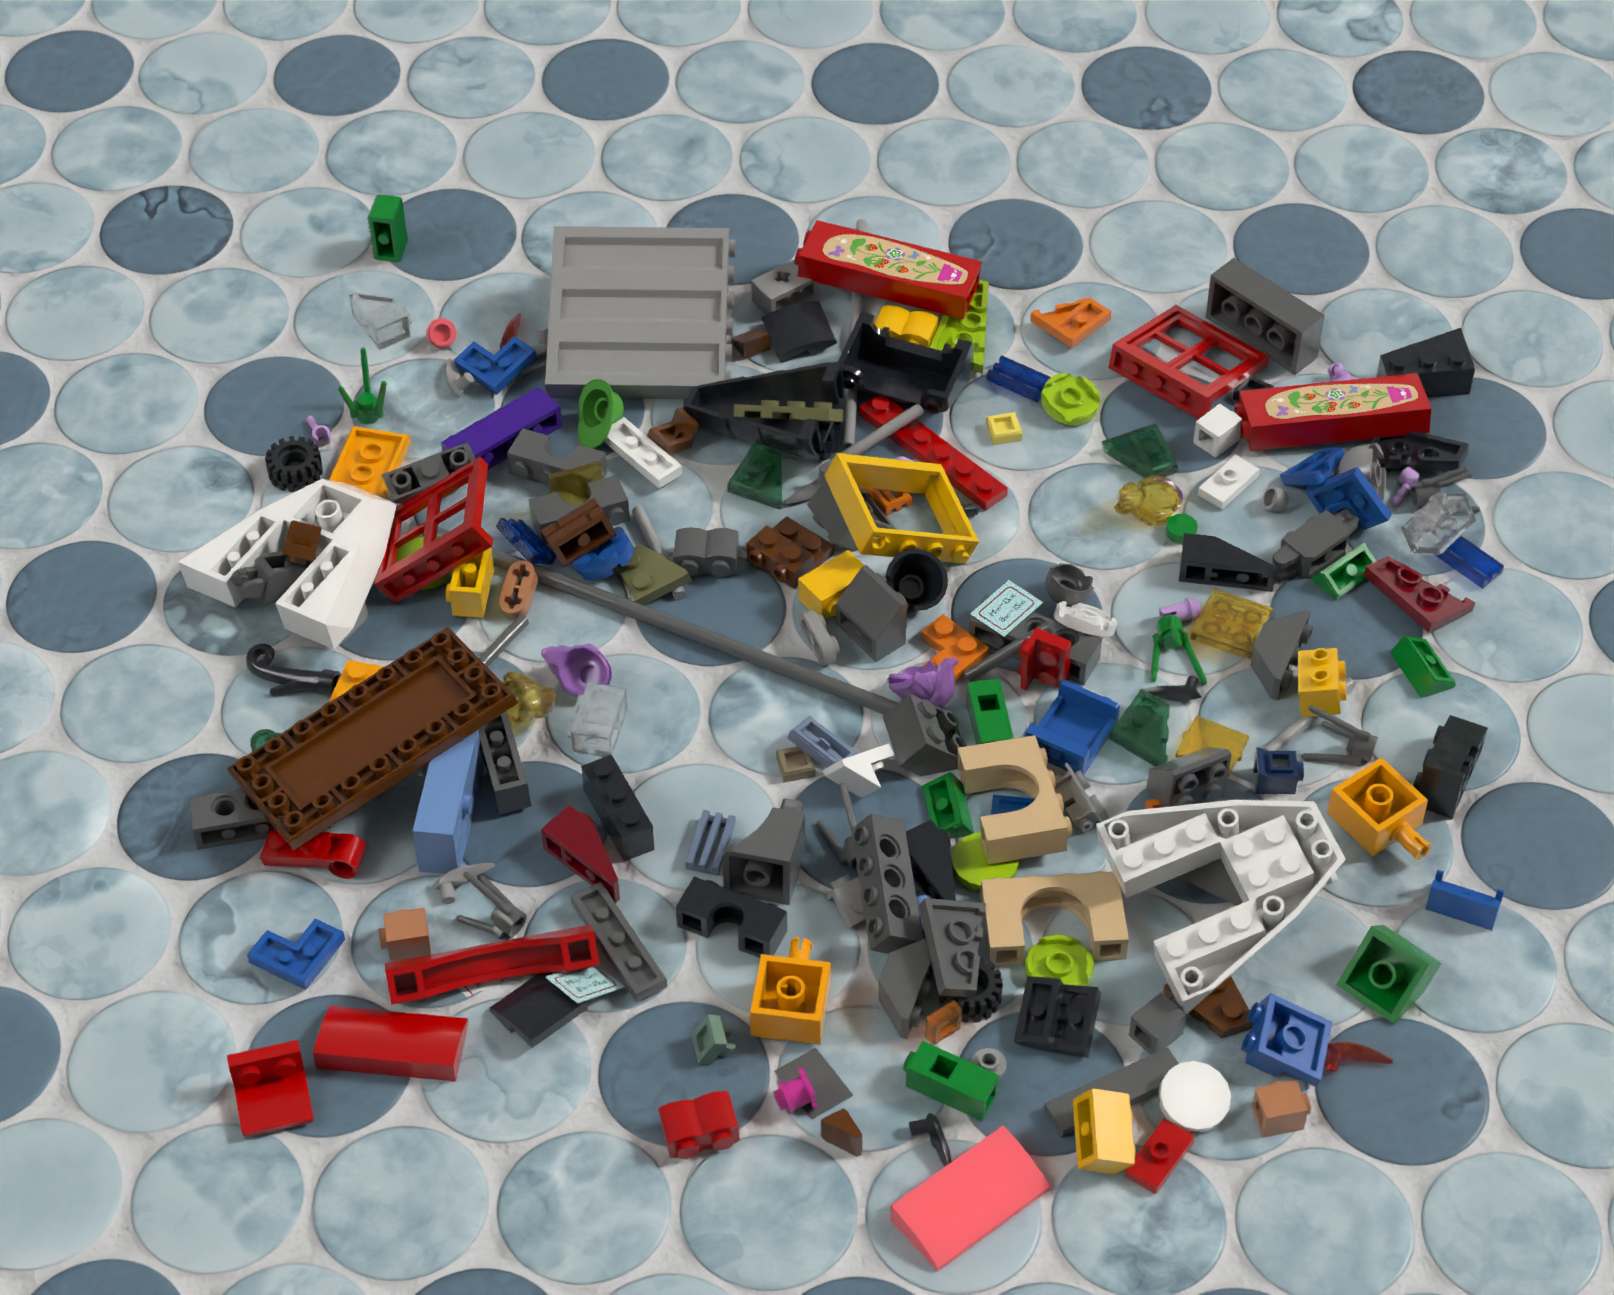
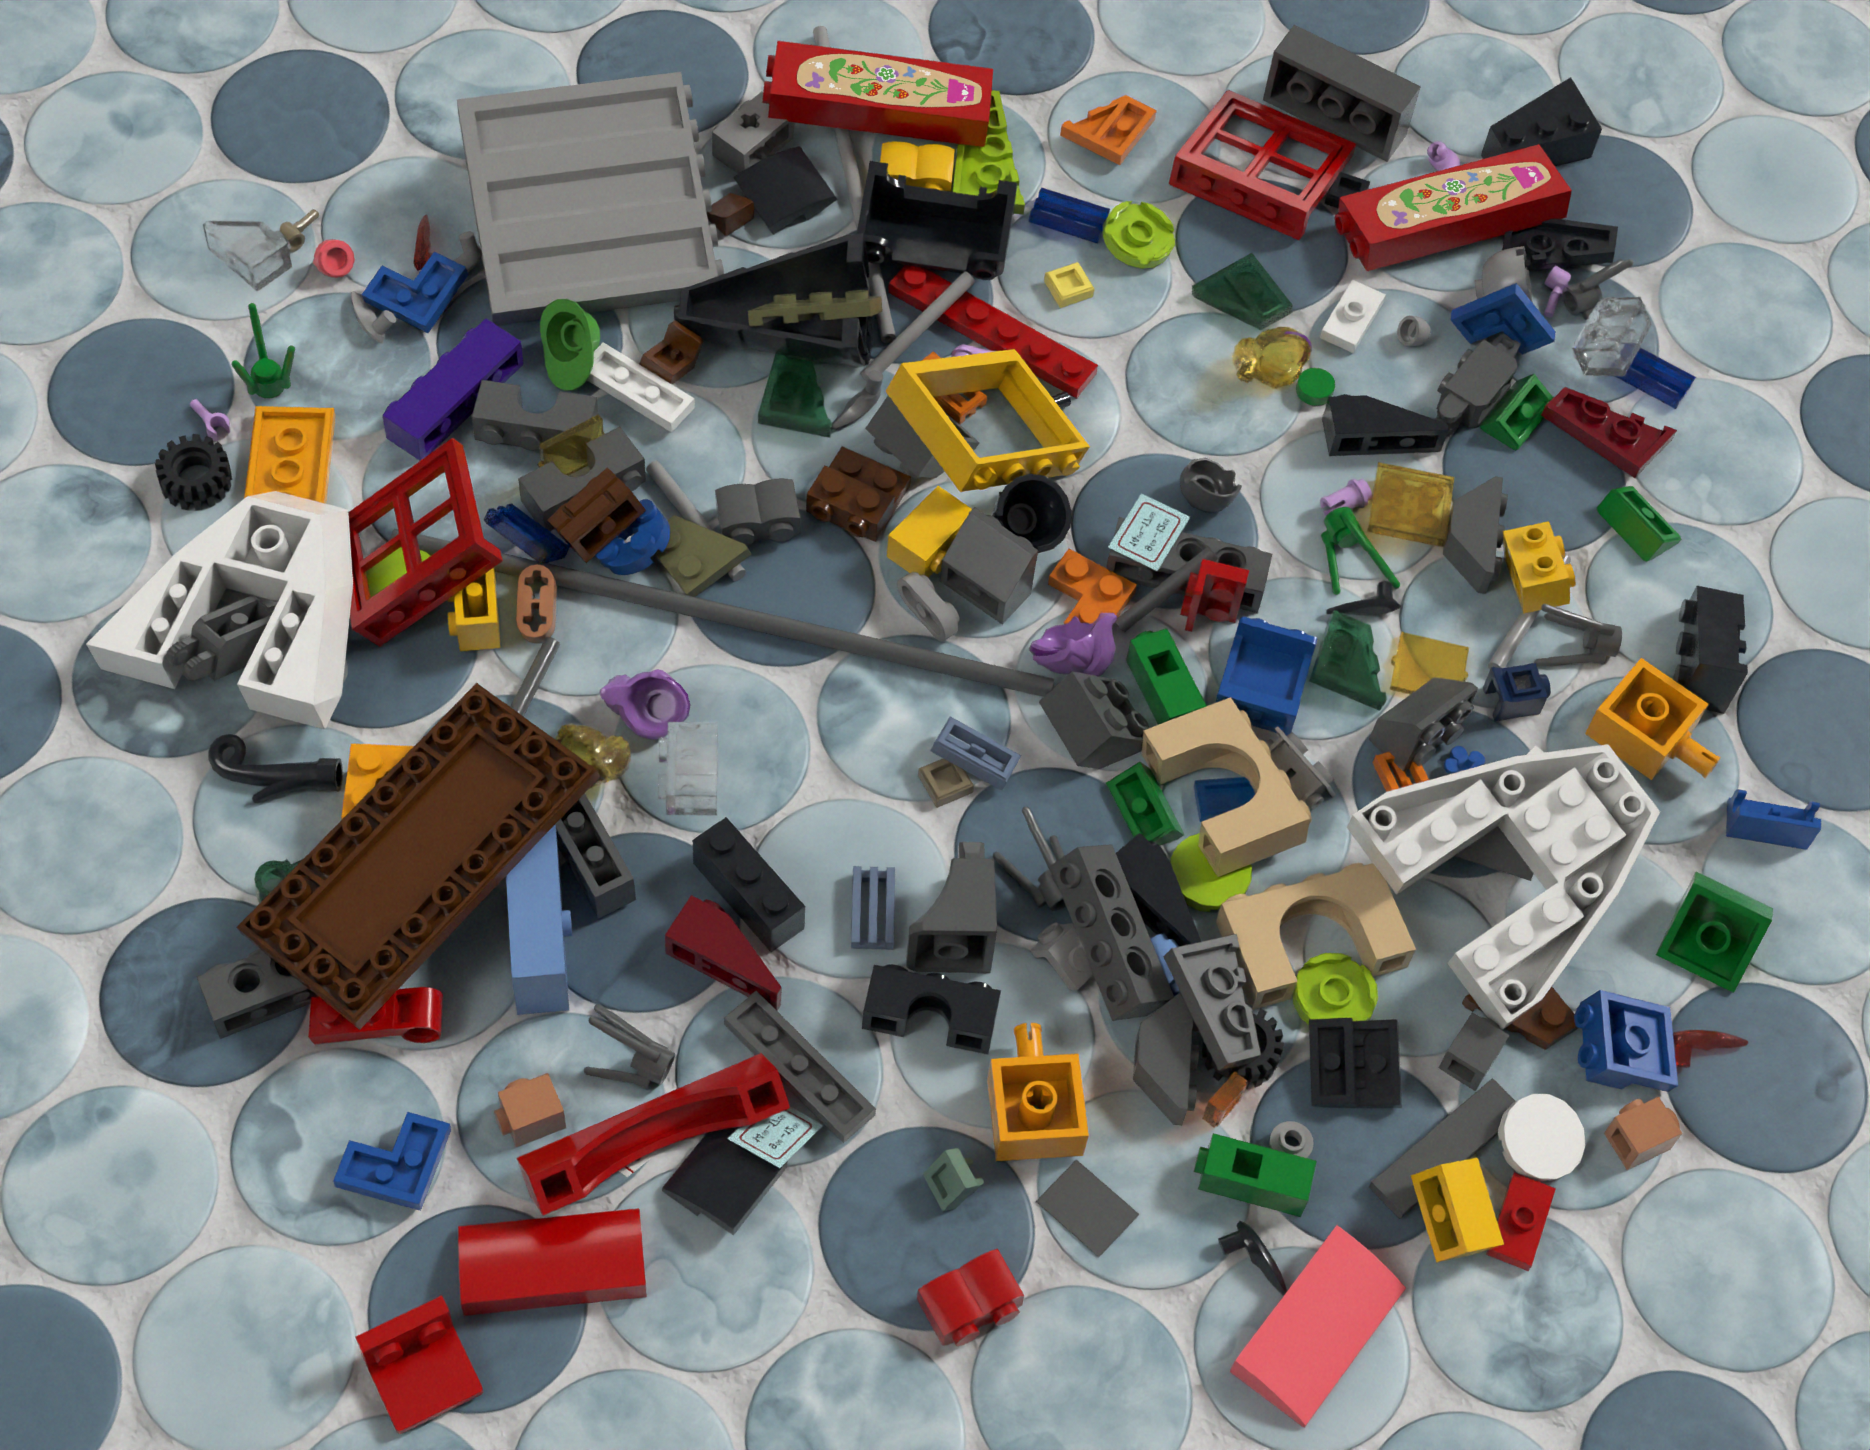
camera: 20 degrees left, 10 degrees up
(302, 542) = (248, 593): reddish brown bracket -> none
(387, 228) = (226, 122): green brick -> none
(417, 313) = (293, 231): none -> dark tan hand
(418, 476) = (382, 462): dark grey slope -> none
(455, 877) = (572, 1015): light grey bar -> none
(795, 1093) = (1075, 1231): dark pink brick -> none
(842, 1132) = (1147, 1271): reddish brown slope -> none
(859, 770) = (1030, 779): white slope -> none
(1085, 619) = (1242, 529): white tile -> none
(1217, 430) = (1324, 251): white brick -> none
(1314, 469) = (1450, 285): blue wing -> none

